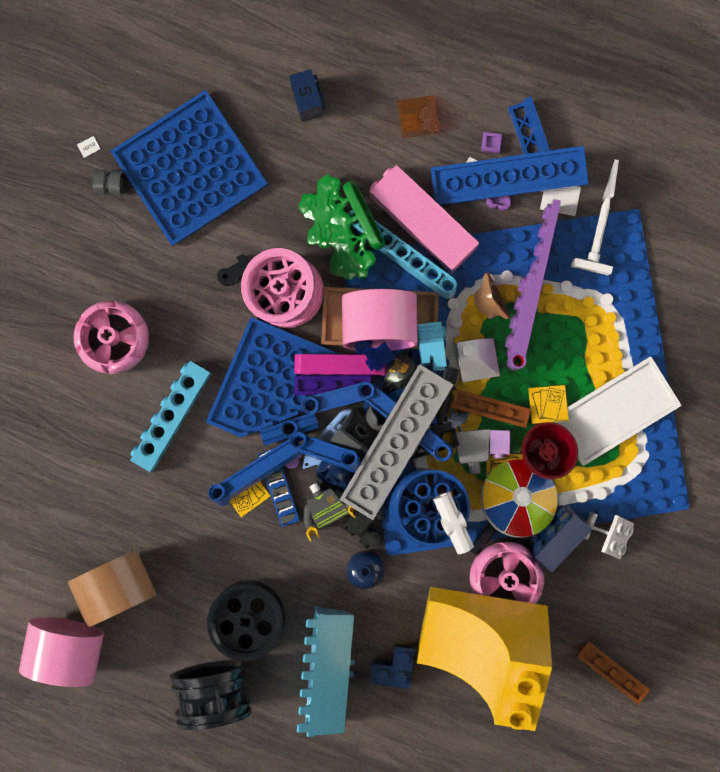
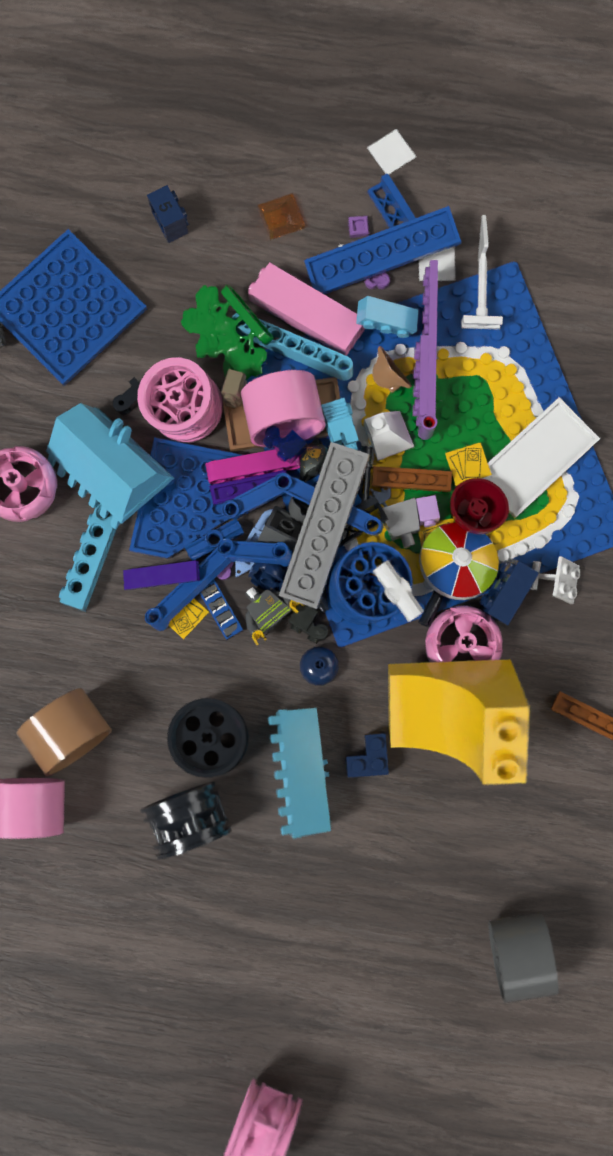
camera: 10 degrees left, 5 degrees down
(199, 334) = (105, 462): none -> medium azure piece
(231, 454) = (161, 575): none -> dark purple tile
(336, 287) = (232, 388): none -> dark tan brick
(500, 245) = (387, 317): none -> medium azure brick
(540, 72) = (391, 152): none -> white sticker

